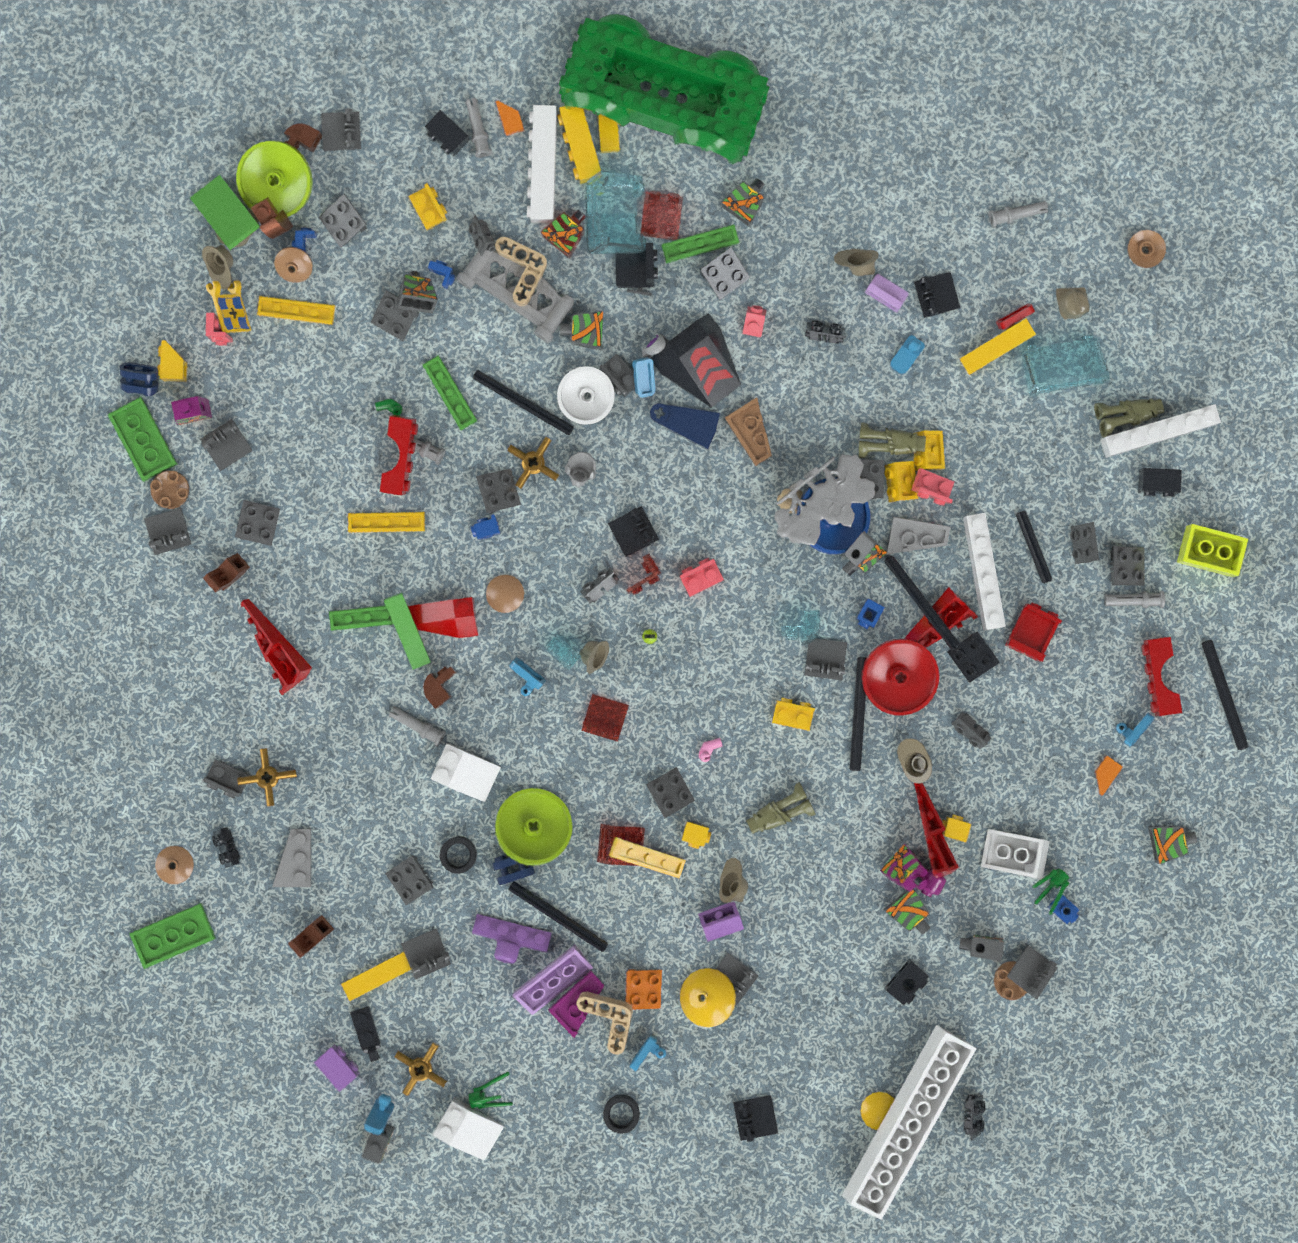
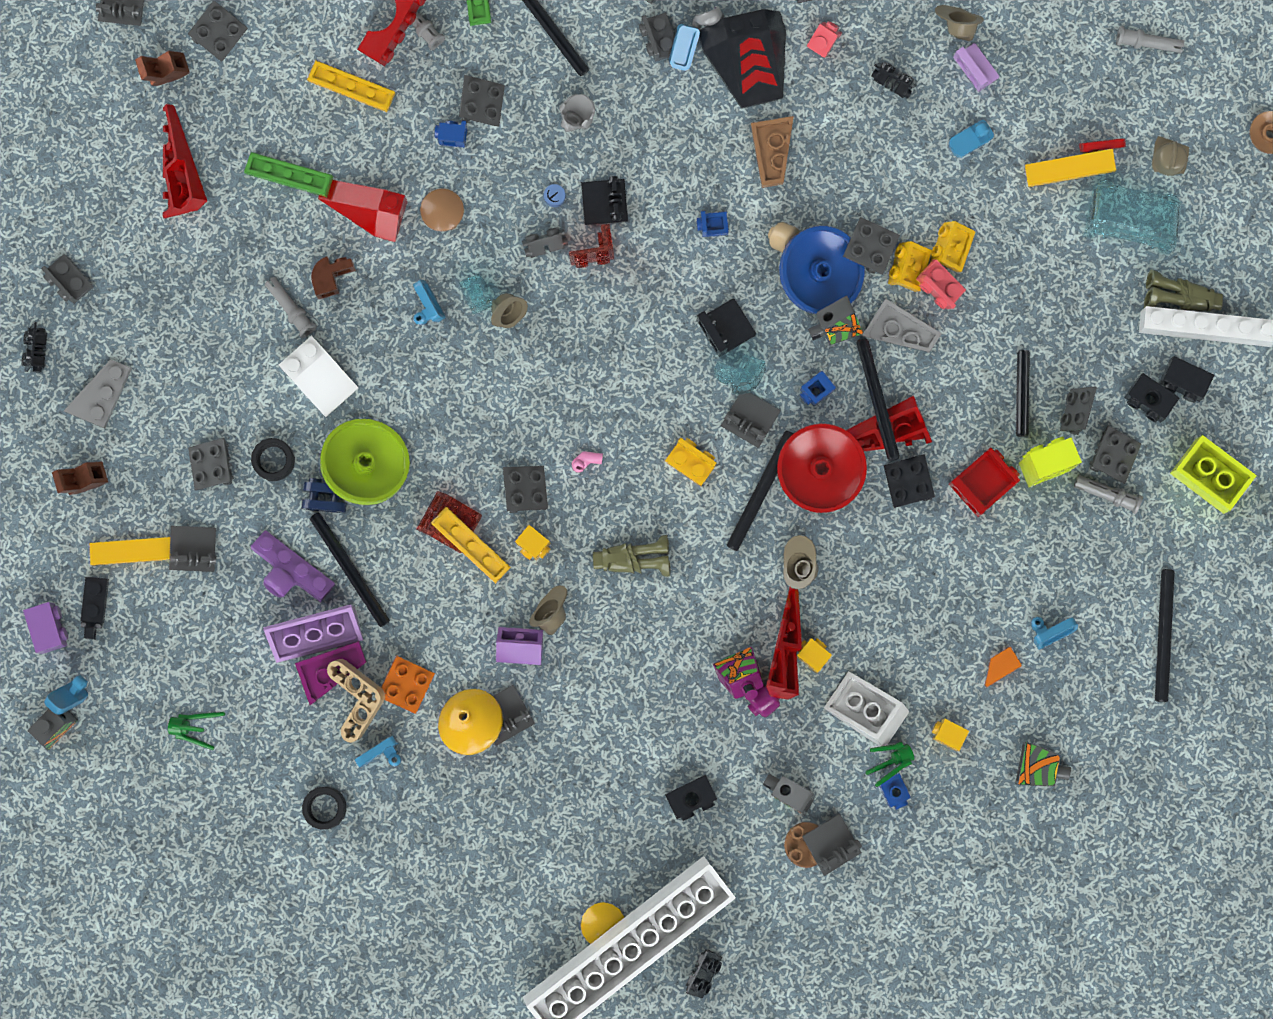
camera: 25 degrees right, 5 degrees down
(271, 771) = (105, 302): pearl gold bar -> none
(407, 630) = (322, 203): bright green tile -> none
(420, 1061) = (138, 675): pearl gold bar -> none
(468, 1129) = (154, 754): white slope -> none
(525, 457) = (527, 93): pearl gold bar -> none
(576, 385) = (611, 26): white dish -> none
(590, 543) = (554, 195): none -> medium blue tile
(605, 717) = (490, 382): clear red hinge -> none
(649, 632) = (573, 321): lime hinge -> none
(689, 423) = (711, 115): dark blue piece -> none
(701, 577) = (655, 277): coral bracket -> none
(729, 513) = (713, 224): none -> blue bracket
(755, 1118) = (466, 875): black hinge -> none
(775, 593) = (726, 327): none -> black bracket
(829, 500) = (822, 250): light grey plant -> none
(898, 441) = (923, 221): olive piece -> none
(909, 911) = (726, 722): torso -> none
(937, 294) = (1028, 89): black hinge -> none
(977, 737) = (877, 568): dark grey hinge -> none
(984, 571) = (958, 395): white brick -> none
(1081, 597) = (1049, 461): none -> neon yellow brick
(1088, 846) = (949, 734): none -> yellow brick
(1149, 506) = (1164, 399): none -> black brick
(1157, 653) = (1097, 613): red arch -> none

